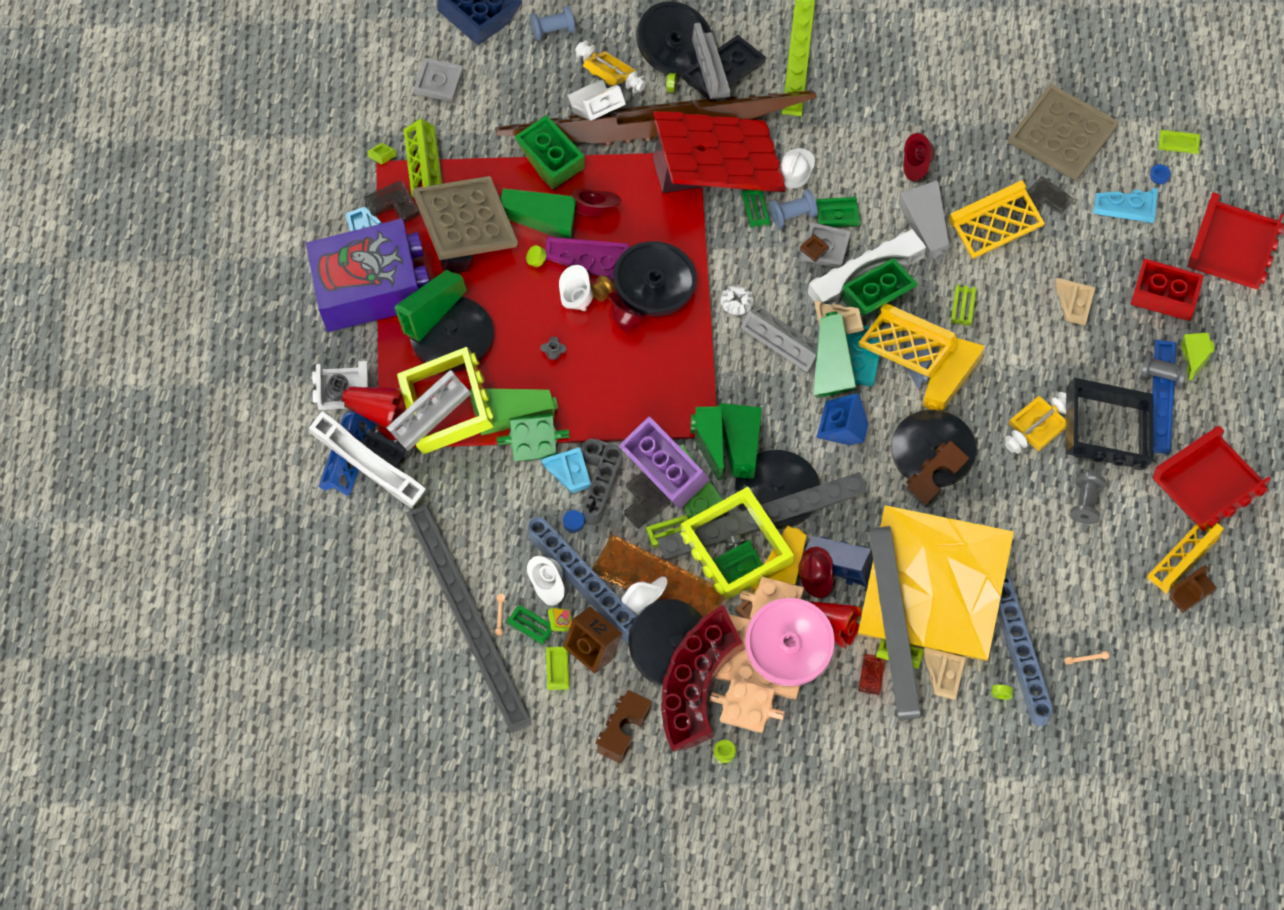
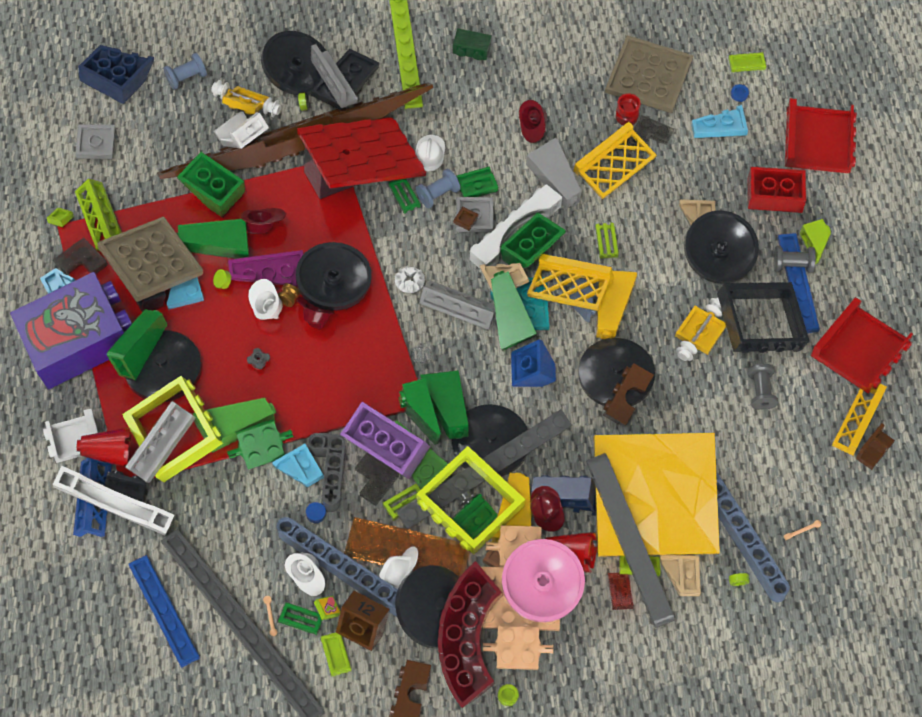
camera: 15 degrees left, 0 degrees up
(333, 390) = (66, 442): dark grey wheel -> none
(392, 584) = (164, 611): none -> blue tile
(493, 263) = (185, 294): none -> medium azure wing
(874, 58) = (471, 44): none -> dark green brick
(1027, 166) = (627, 109): none -> red wheel
(1086, 338) = (721, 246): none -> black dish

